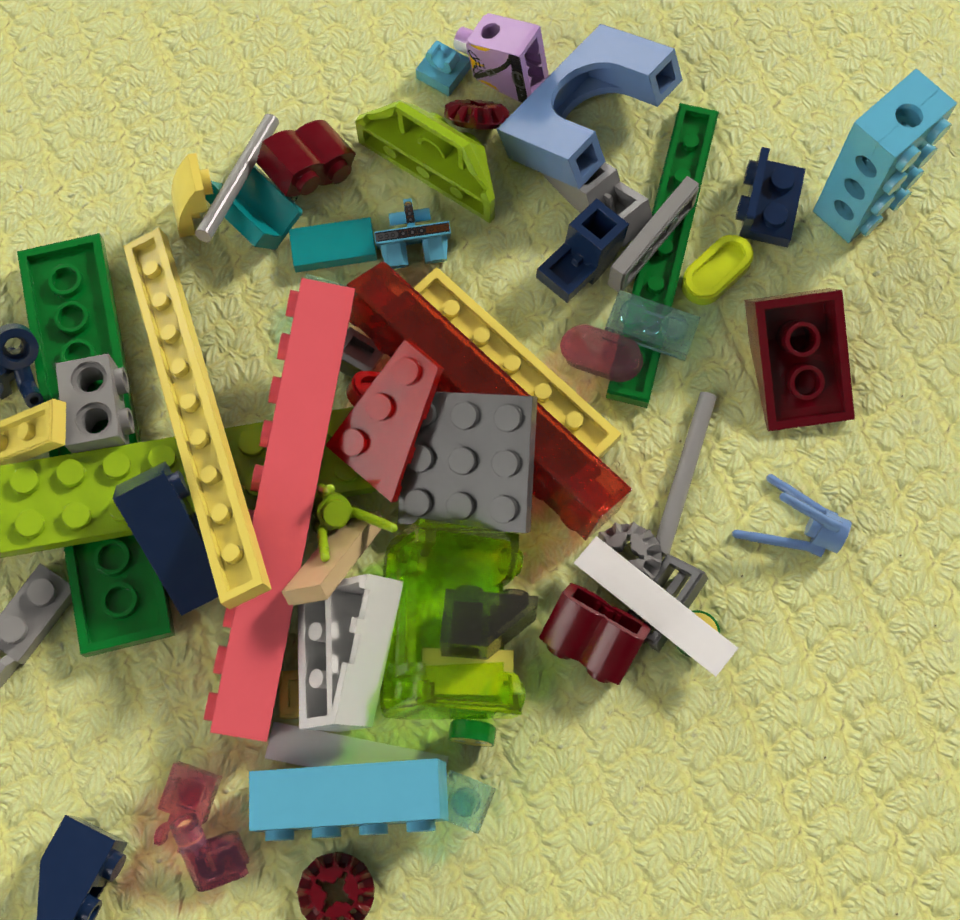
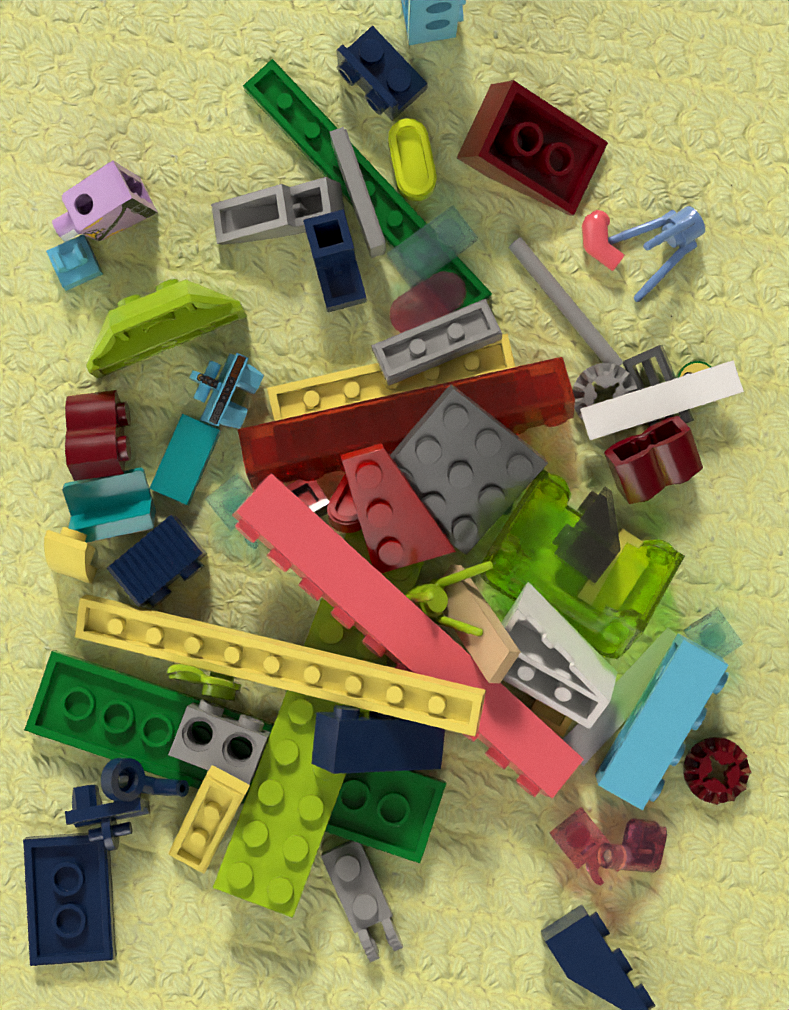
camera: 60 degrees left, 15 degrees up
(145, 379) = (215, 685): none -> lime plate
(229, 272) = (157, 562): none -> dark blue brick
(235, 179) = (81, 505): light grey bar -> none
(472, 733) = (671, 598): green tile -> none
(476, 114) = (145, 264): dark red gear -> none
(571, 377) = (437, 342): none -> light grey tile
(601, 64) = (167, 126): medium blue arch -> none
(759, 462) = (596, 239): none -> coral arm

